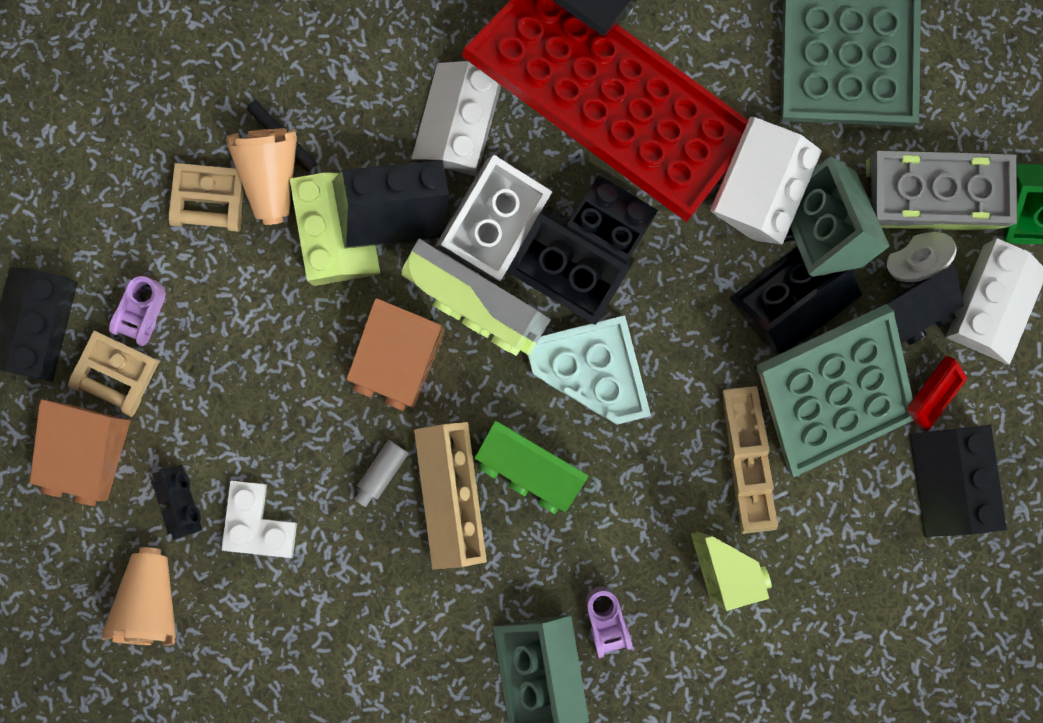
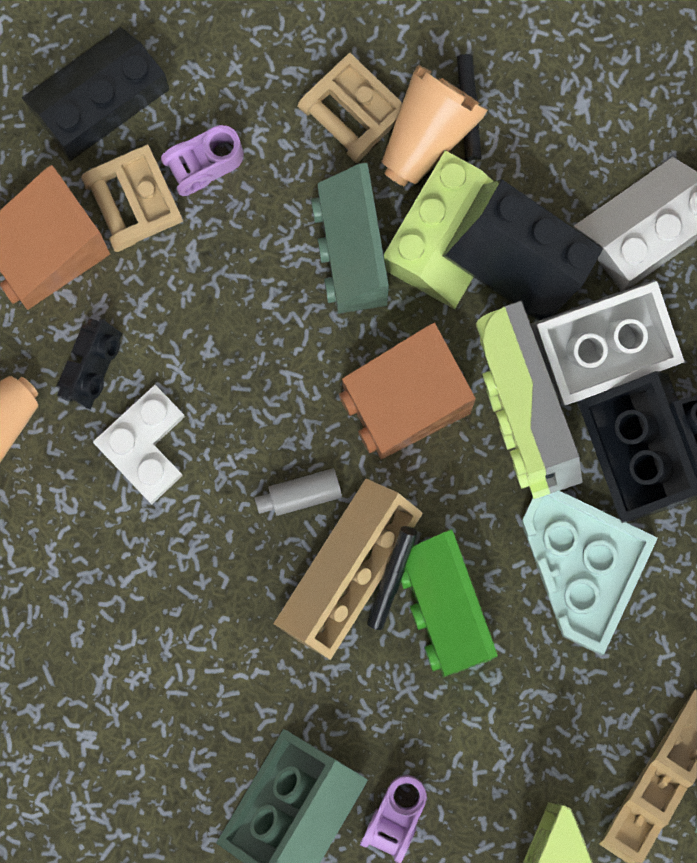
camera: 45 degrees right, 5 degrees down
(277, 286) = (351, 241): none -> sand green slope
(482, 478) = (392, 577): none -> black piece

